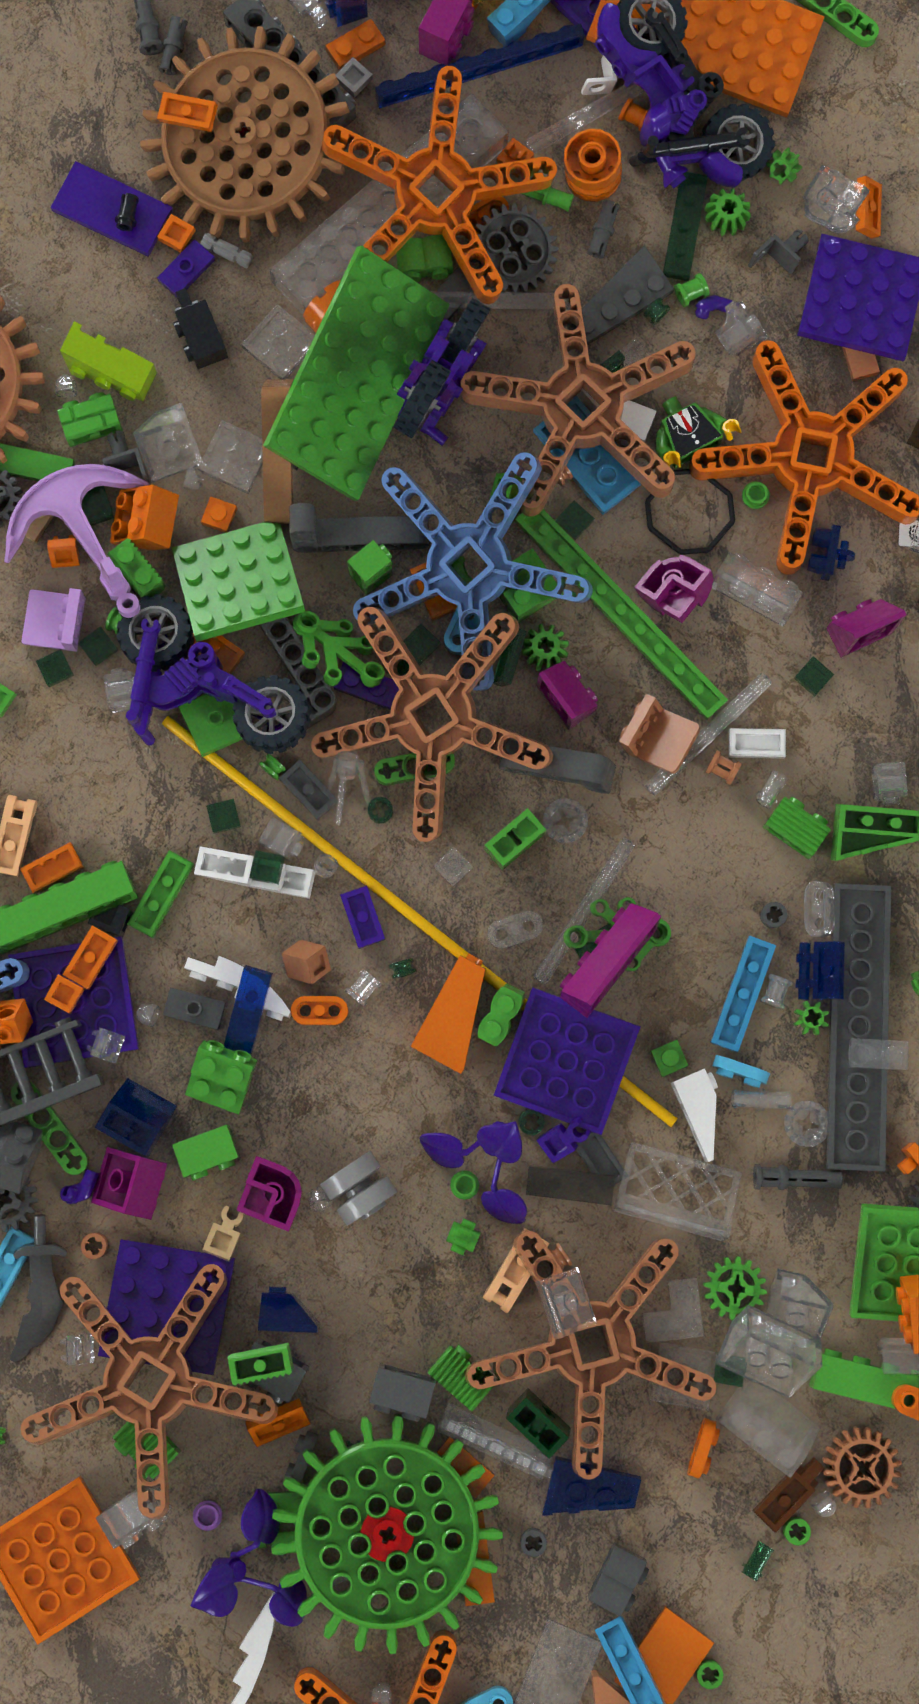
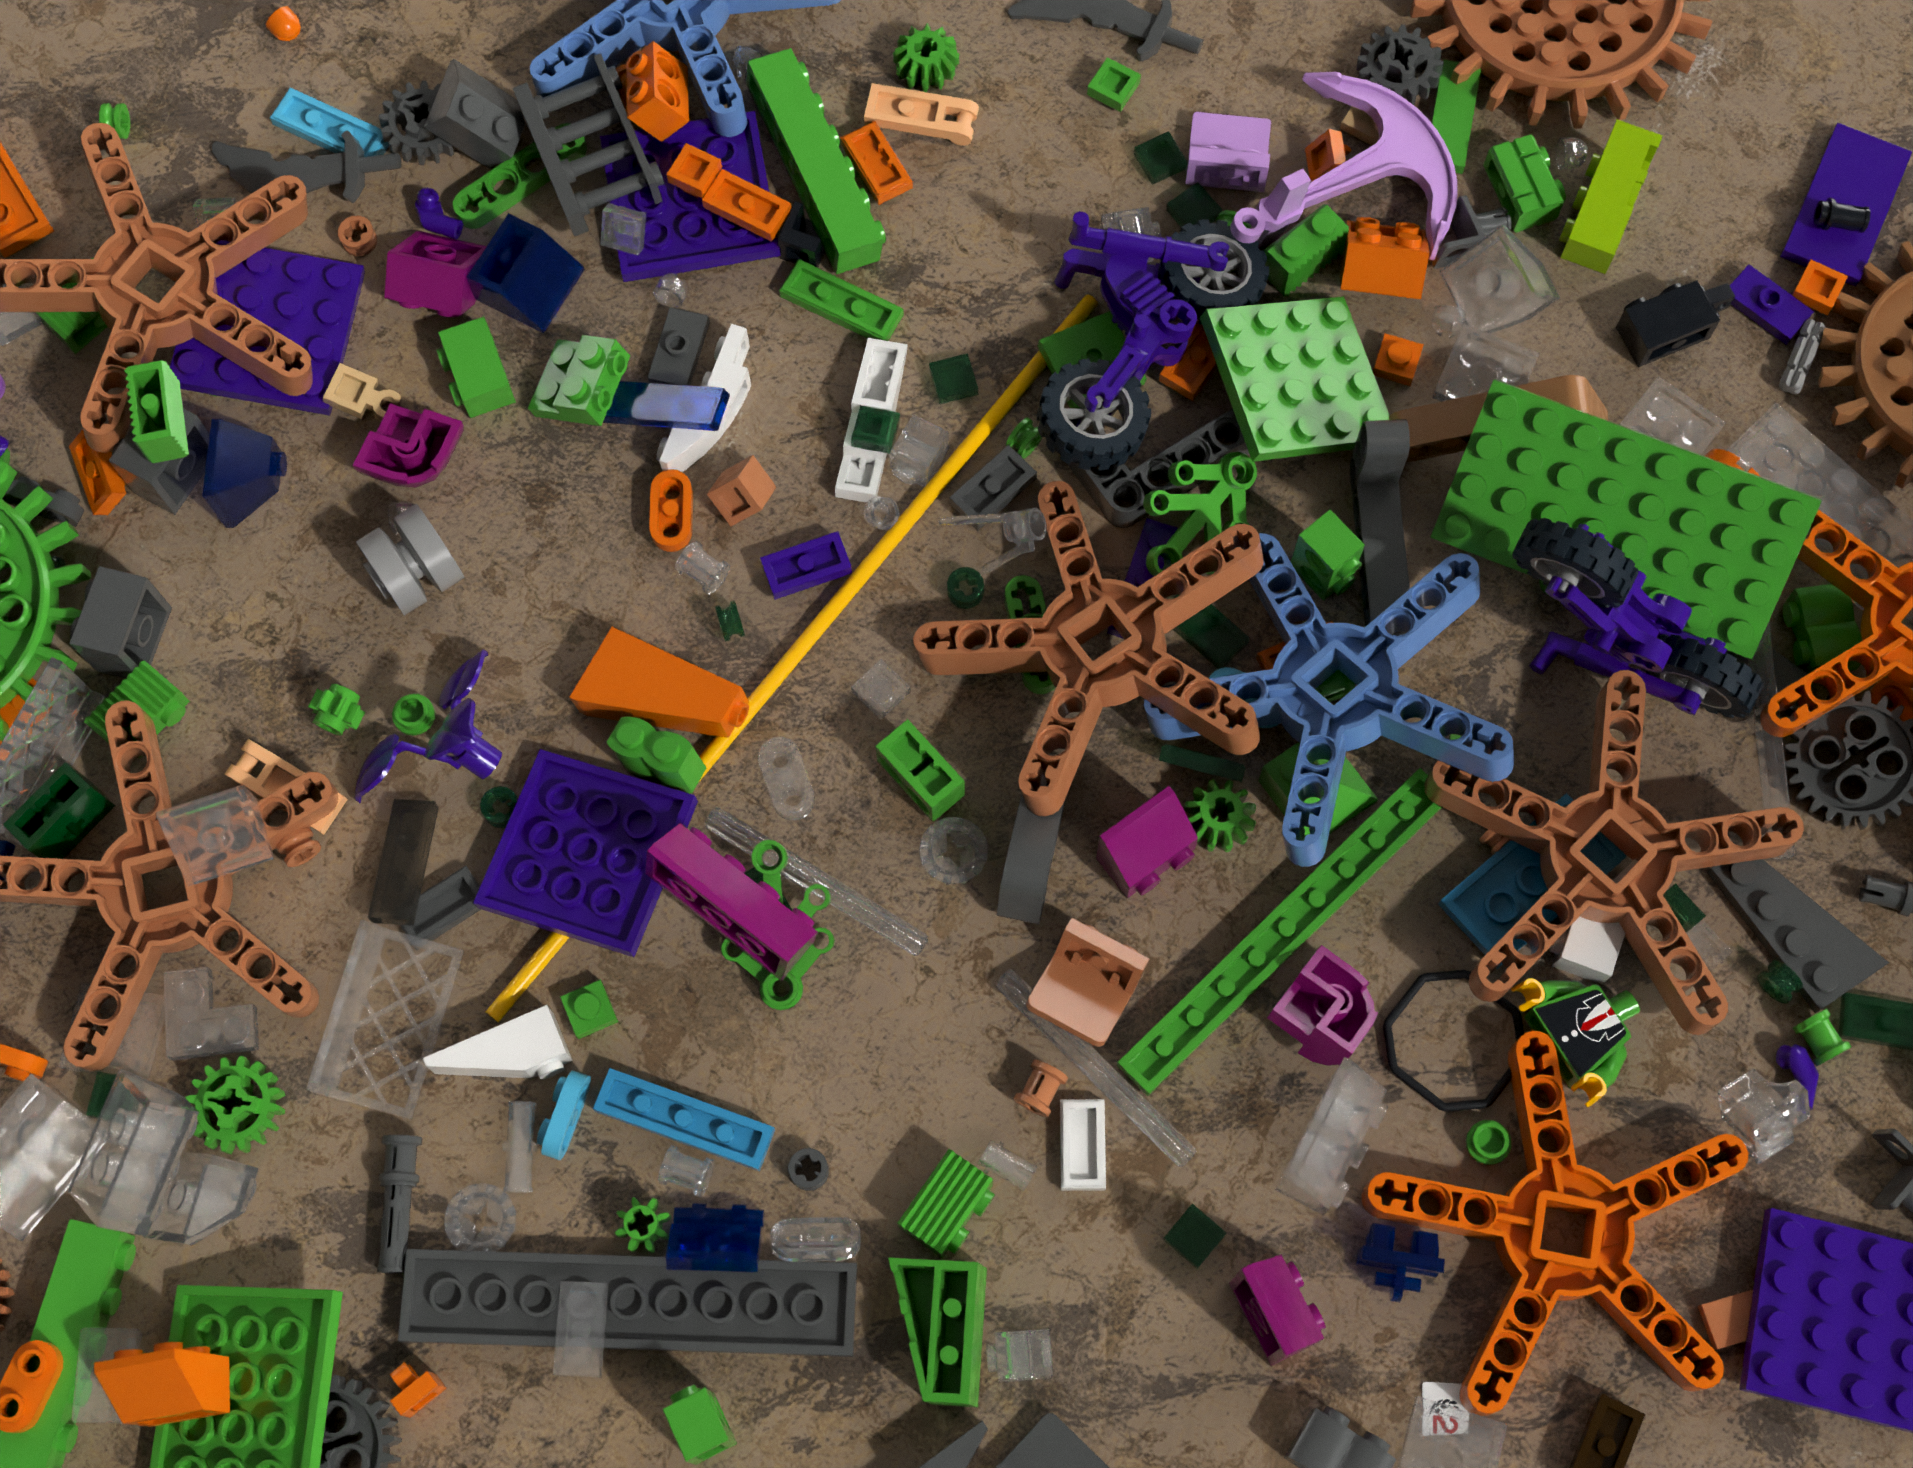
camera: 95 degrees right, 10 degrees down
(97, 506) = (1398, 200): clear green tile -> none
(561, 1141) = (469, 846): dark purple plate -> none
(574, 520) = (1426, 861): clear green tile -> none

